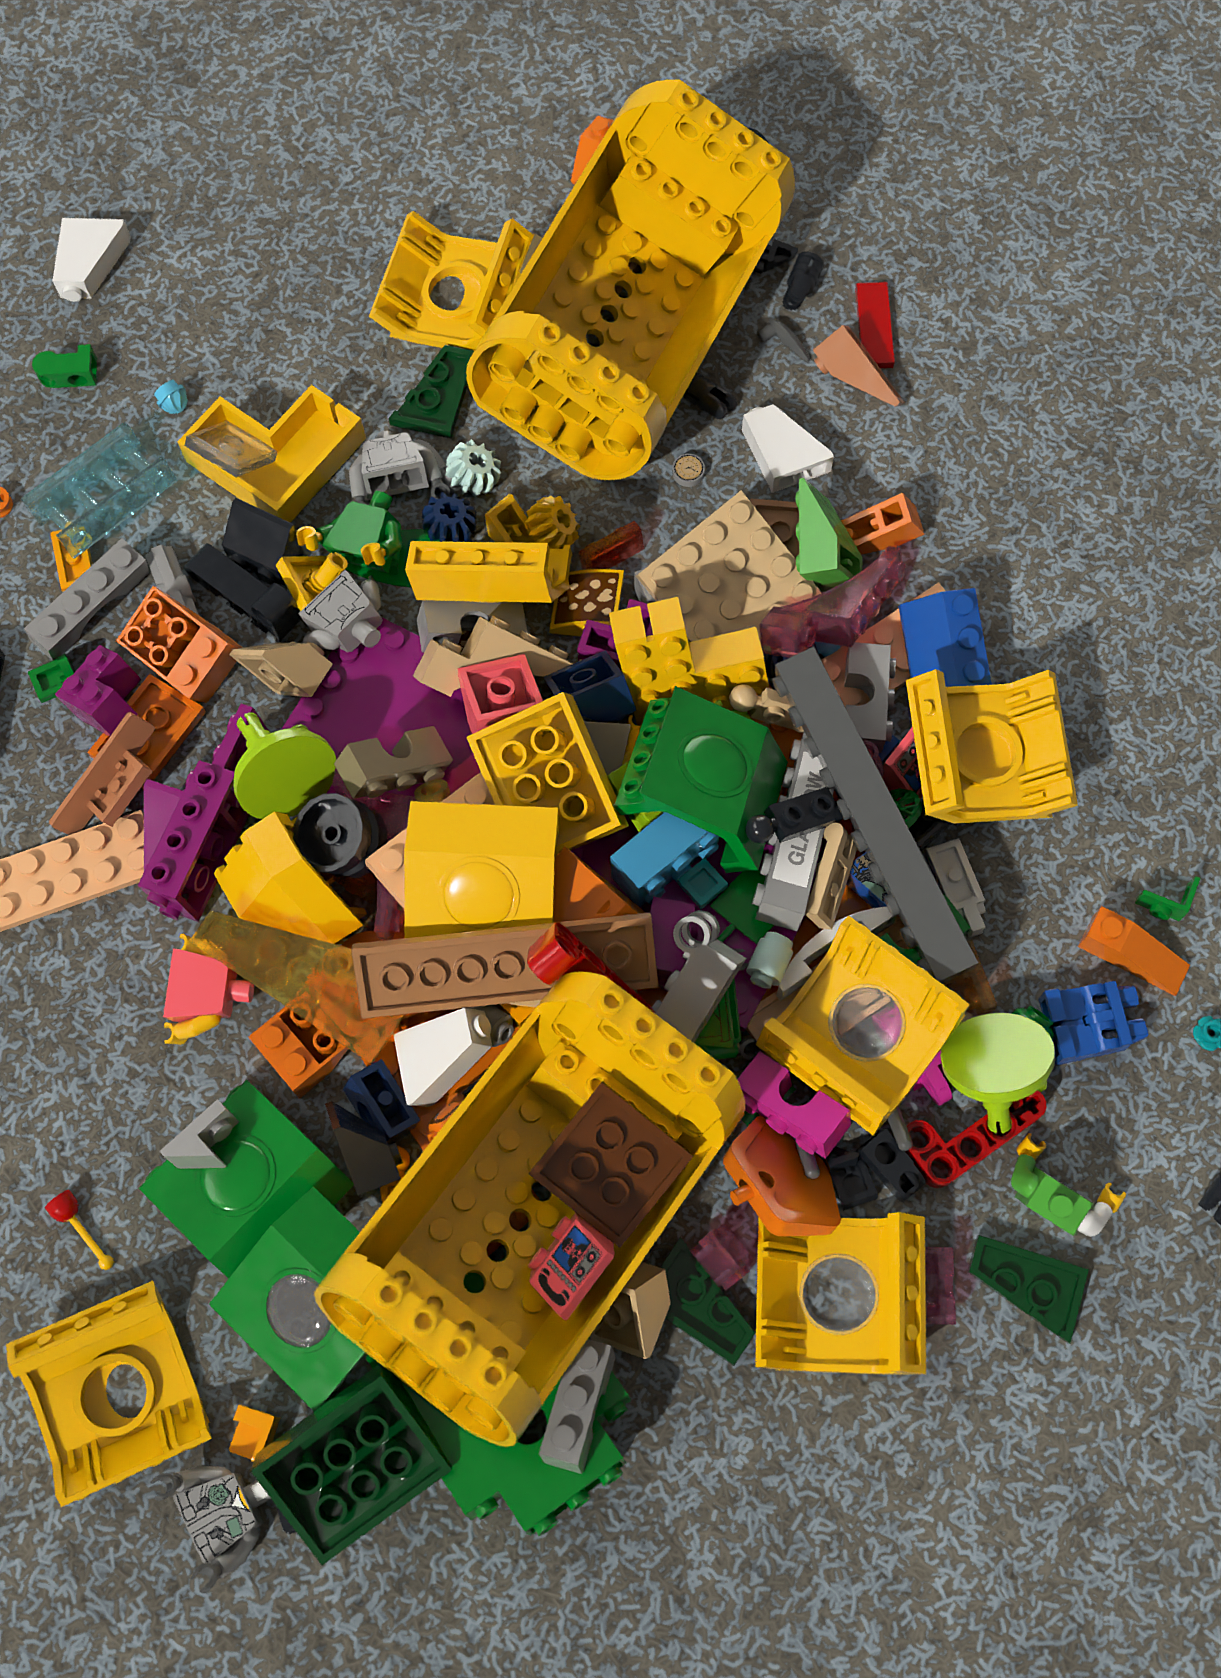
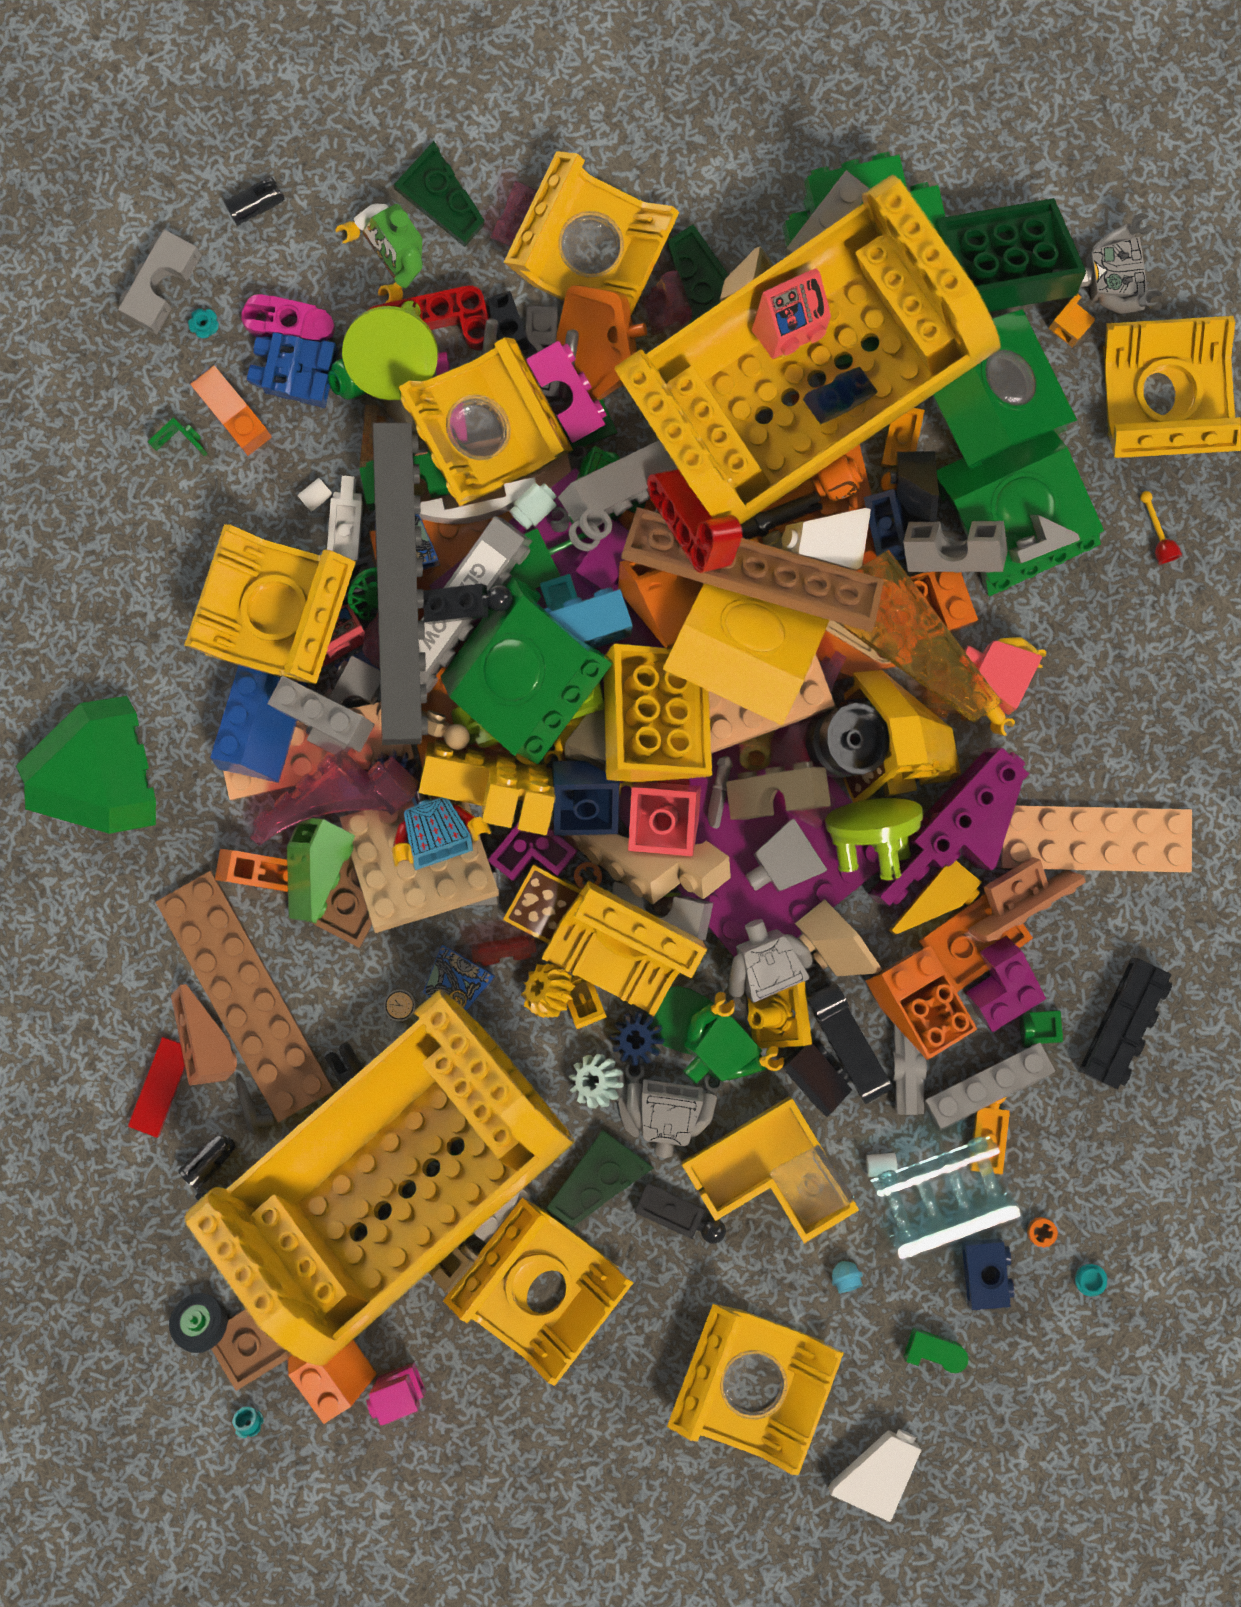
camera: 160 degrees left, 15 degrees up
(33, 430) = (991, 1293): none -> dark blue brick
(172, 502) = (880, 1162): none -> white hinge
(195, 746) = (943, 893): none -> yellow slope
(254, 257) = (711, 1392): none -> yellow panel
(321, 1084) = (932, 552): none -> light grey arch
(356, 392) = (678, 1214): none -> black plate
(362, 710) = (785, 860): none -> light grey torso
(456, 750) = (719, 792): none -> light grey piece
(484, 1197) = (840, 395): none -> slope
(544, 139) = (396, 1394): none -> dark pink arch
(566, 639) = (597, 872): none -> orange bush
(611, 1164) = (734, 373): reddish brown plate -> none
(646, 501) = (457, 977): none -> torso
(726, 598) = (435, 832): none -> torso
(784, 448) = (307, 988): white slope -> none
(831, 876) = (453, 551): tan plate -> none
(851, 431) = (245, 996): none -> medium nougat plate
(865, 659) = (321, 713): none -> light grey arch
(1003, 901) = (315, 494): none -> white hinge
(1082, 549) = (92, 770): none -> green panel
(1099, 1078) = (311, 322): none -> dark pink piece

